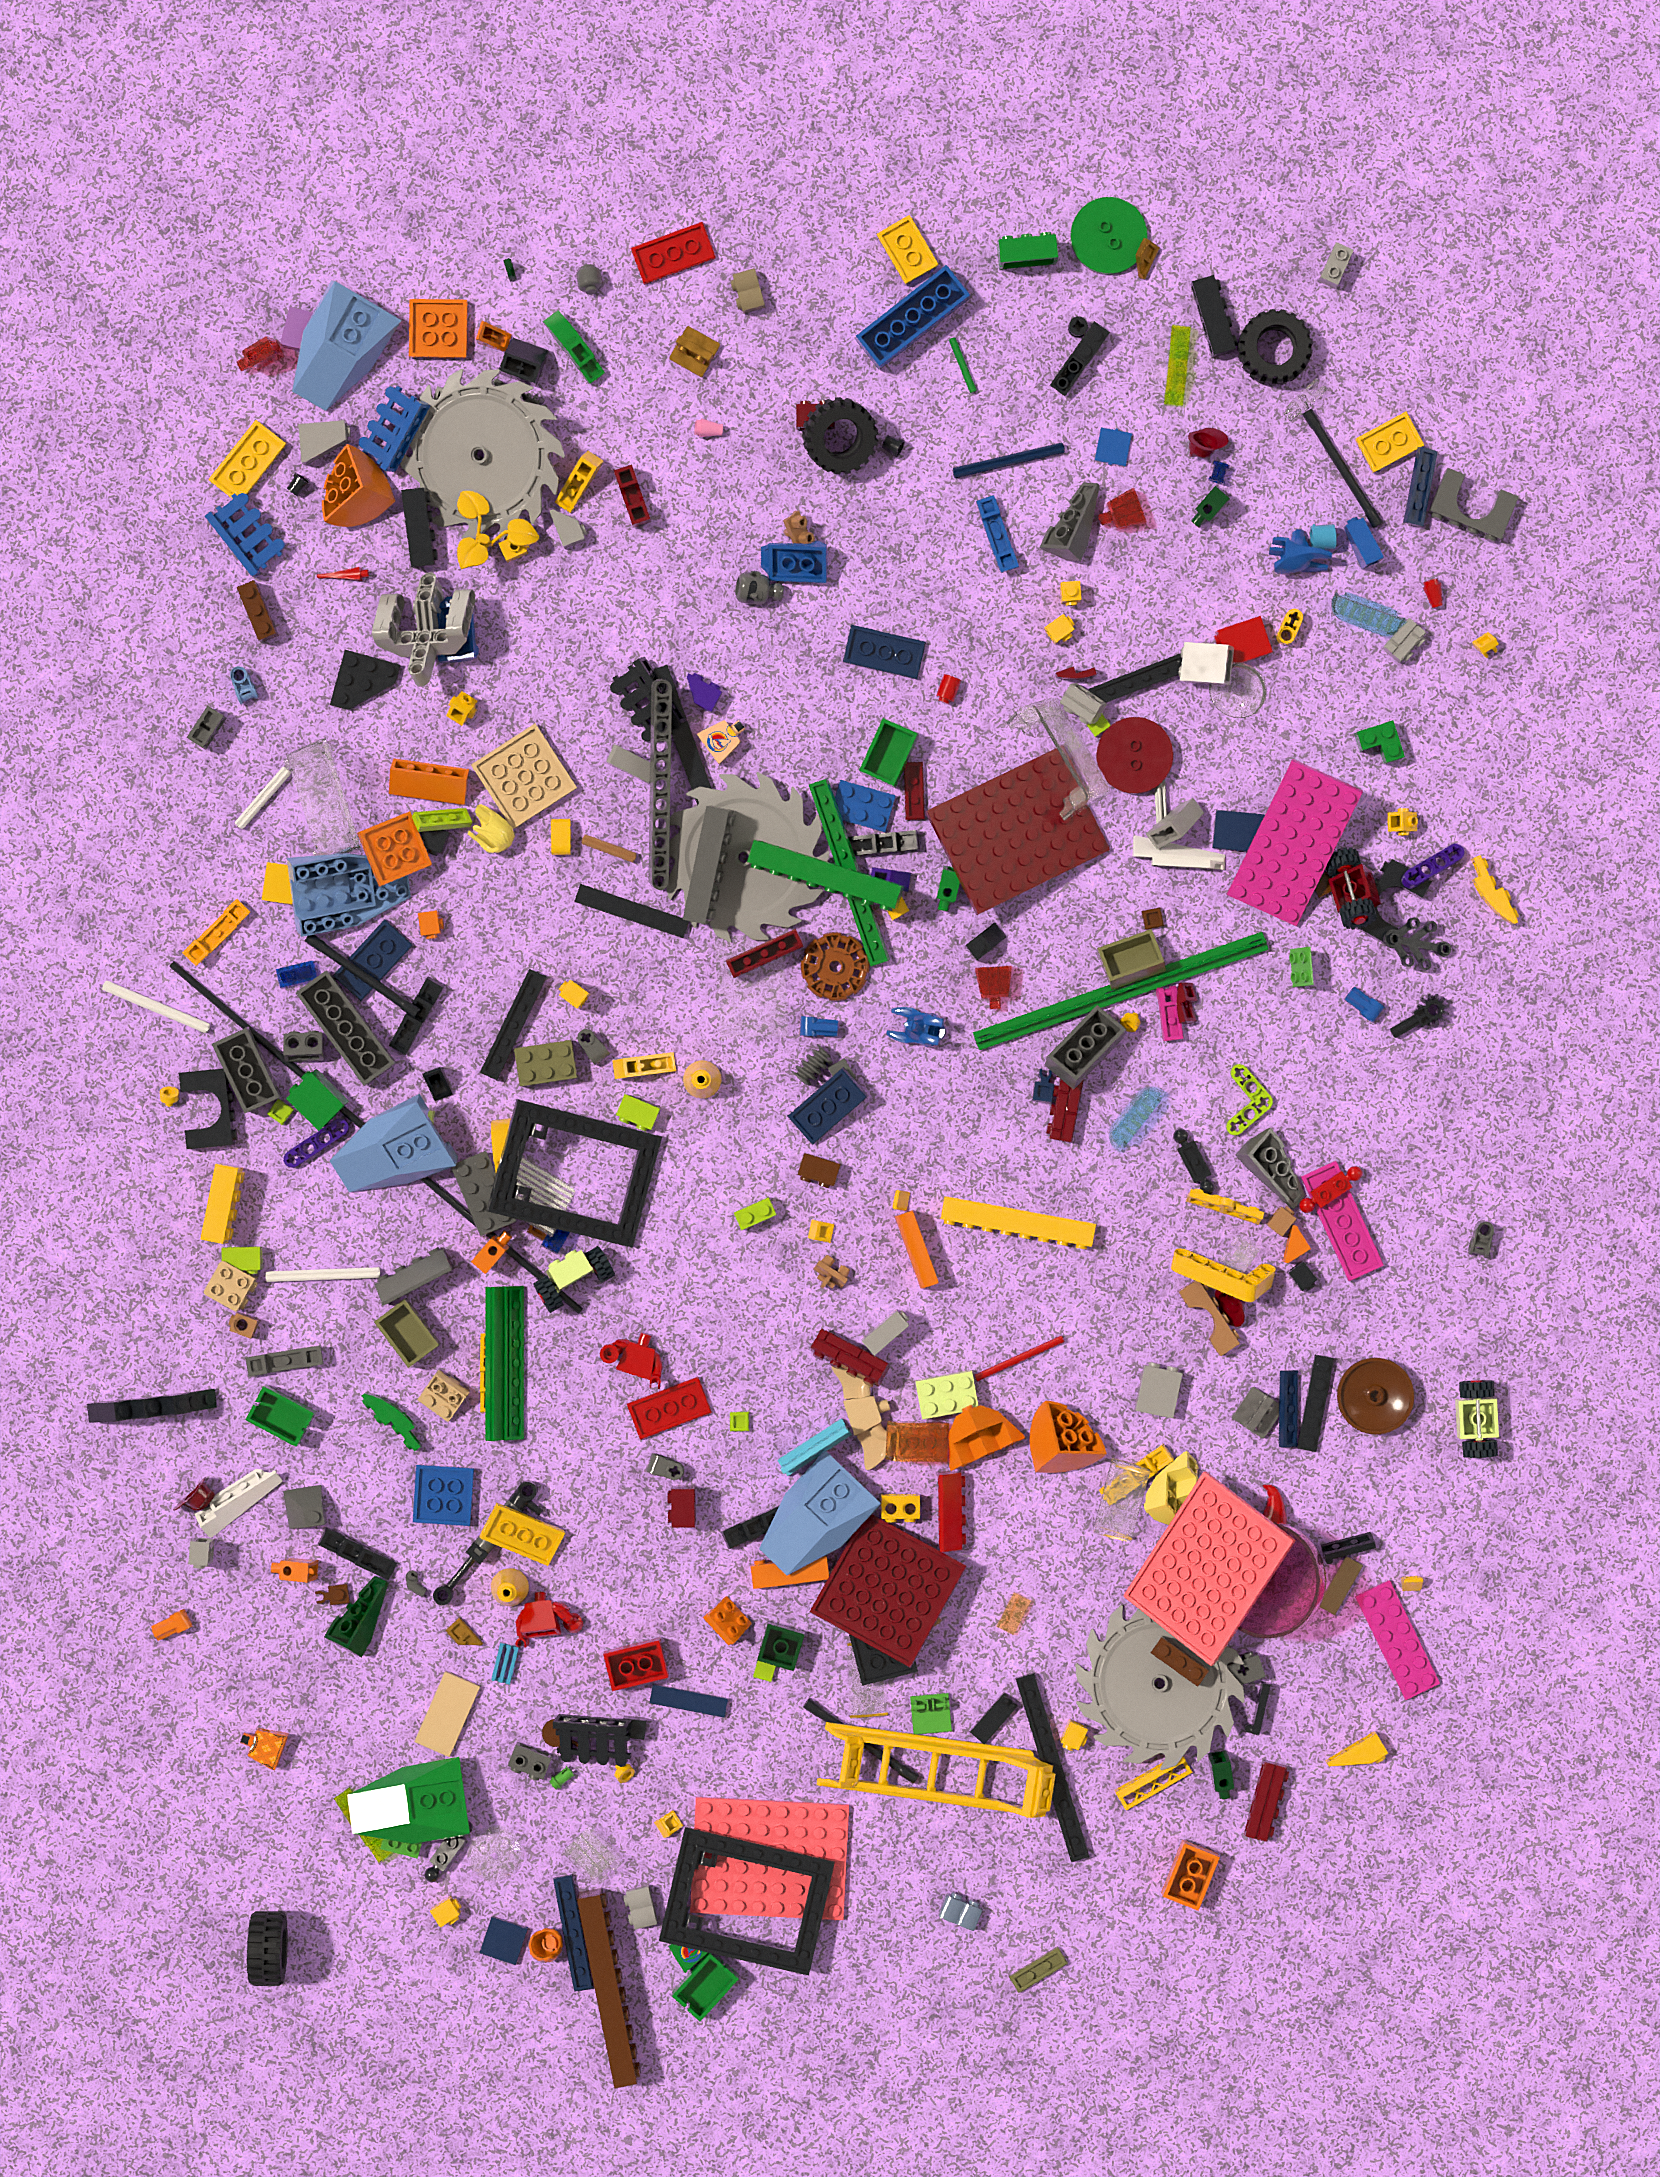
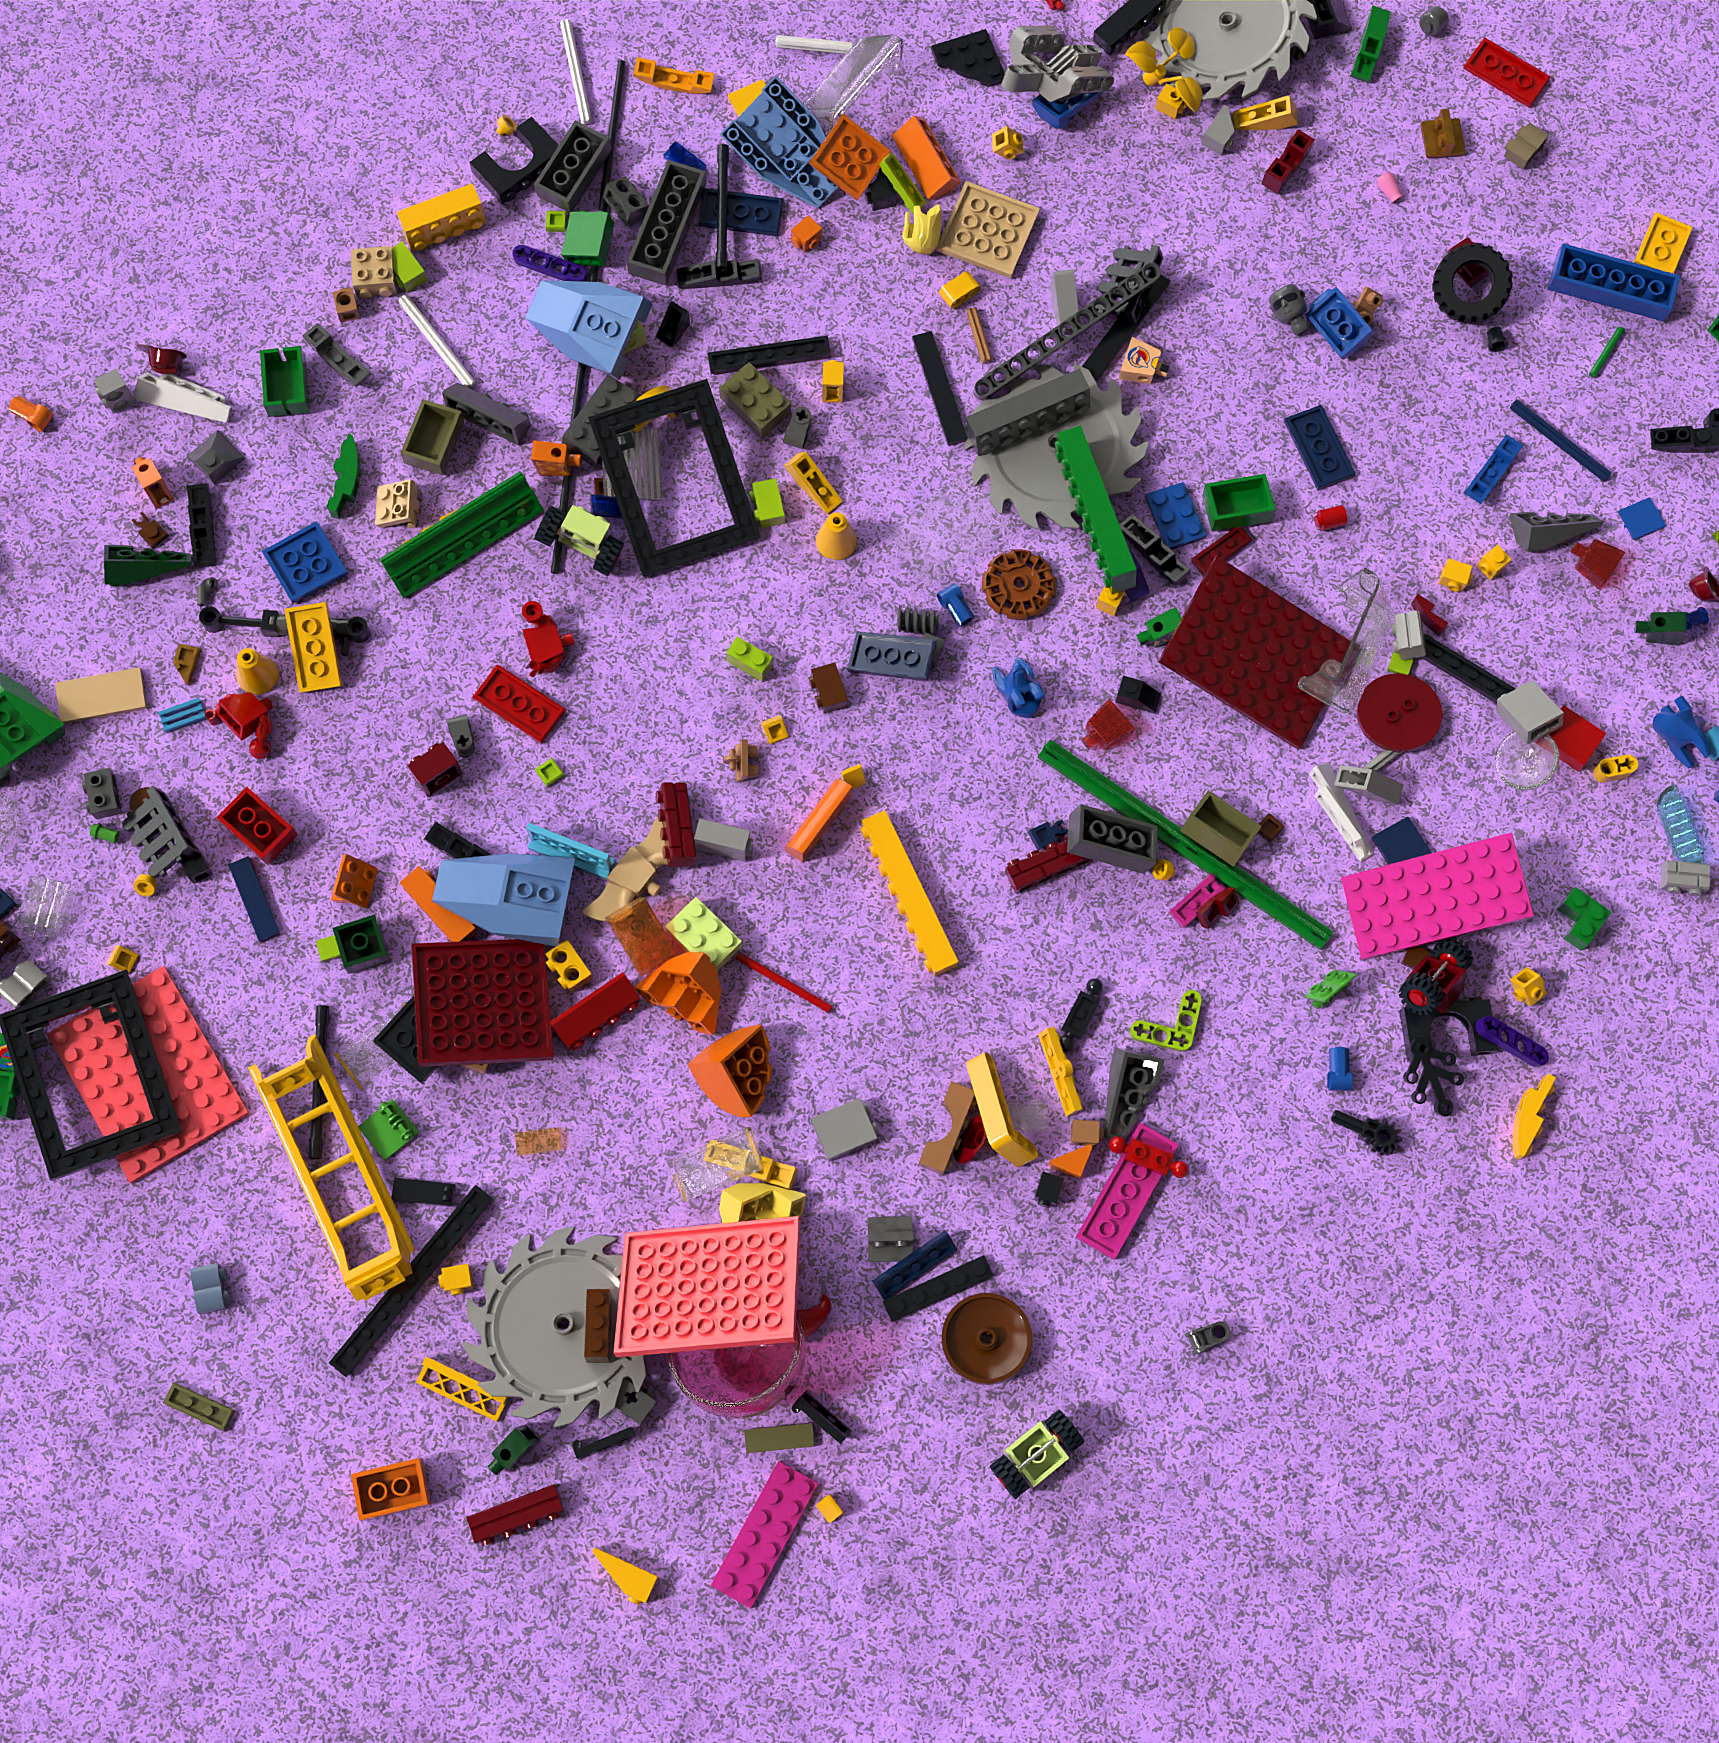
camera: 50 degrees right, 15 degrees down
(151, 1406) = (231, 279): black arch -> none
(704, 694) = (1169, 324): dark purple slope -> none
(764, 953) = (986, 513): dark red brick -> none
(844, 857) = (1127, 517): green plate -> none
(1134, 1116) = (1081, 934): clear light blue brick -> none

